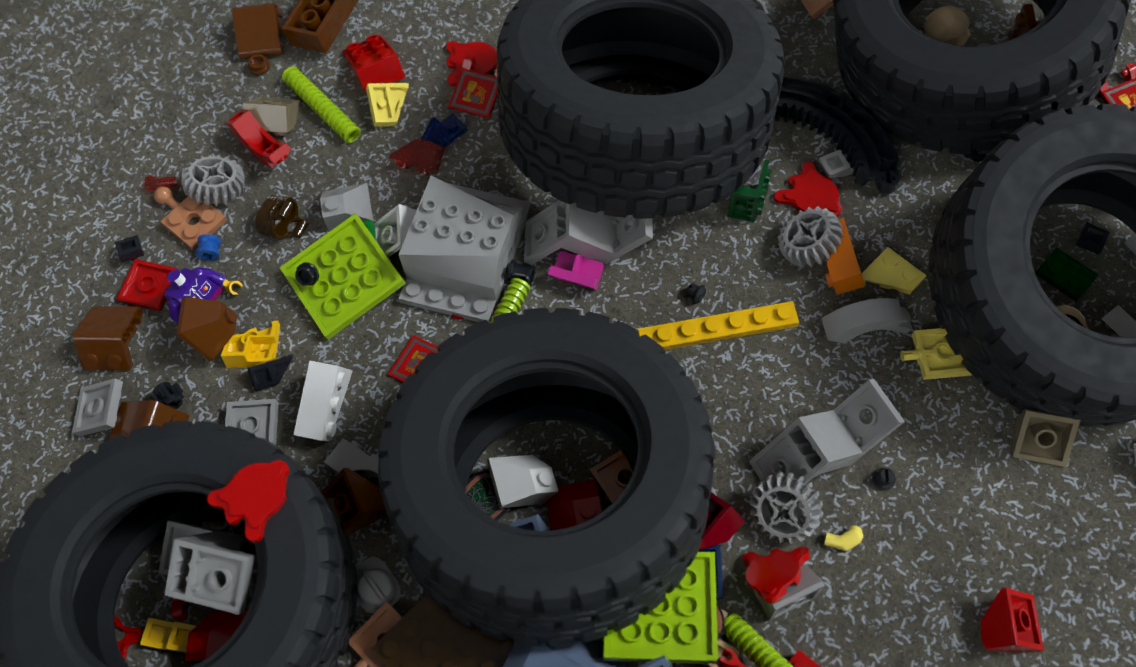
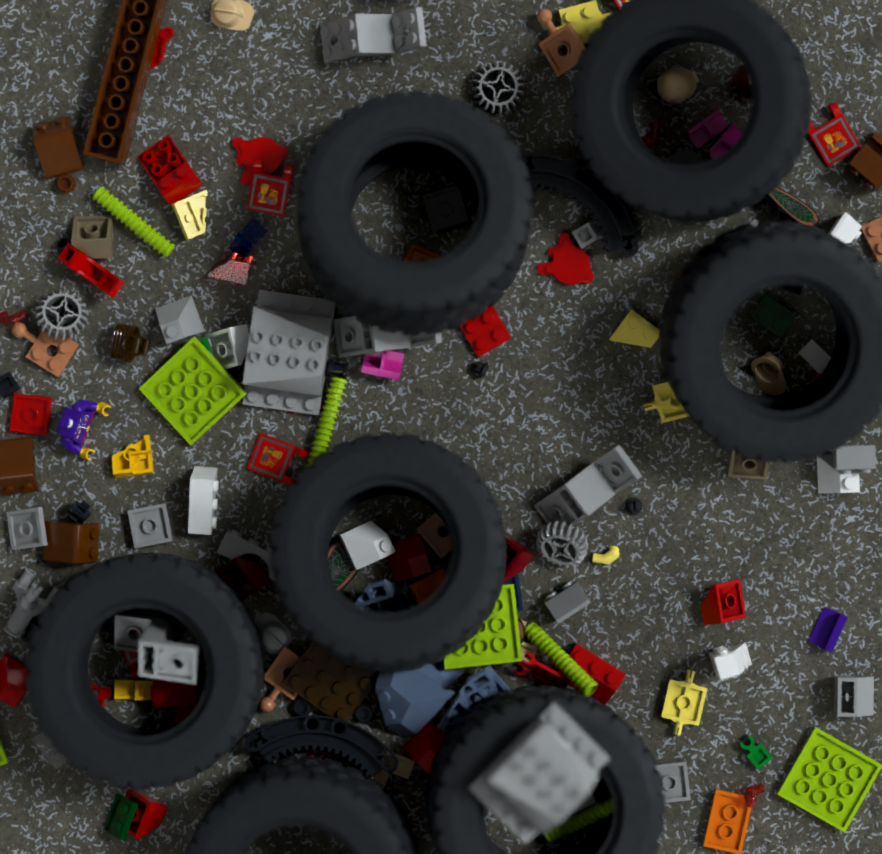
camera: 15 degrees left, 25 degrees up
(206, 325) = (96, 453): reddish brown slope -> none
(208, 247) = (73, 376): blue wheel -> none
(253, 496) = (192, 609): red tile -> none
(269, 372) = (154, 480): black tile -> none
(306, 274) = (165, 397): black plate -> none
(700, 244) = (485, 332): none -> red plate
(723, 326) = (475, 405): yellow plate -> none
(749, 202) = (519, 289): dark green bracket -> none
(774, 572) = (556, 592): red tile -> none
(810, 236) = (558, 313): light grey gear -> none
(843, 266) = (596, 331): orange slope -> none
(866, 317) = (616, 381): light grey arch -> none

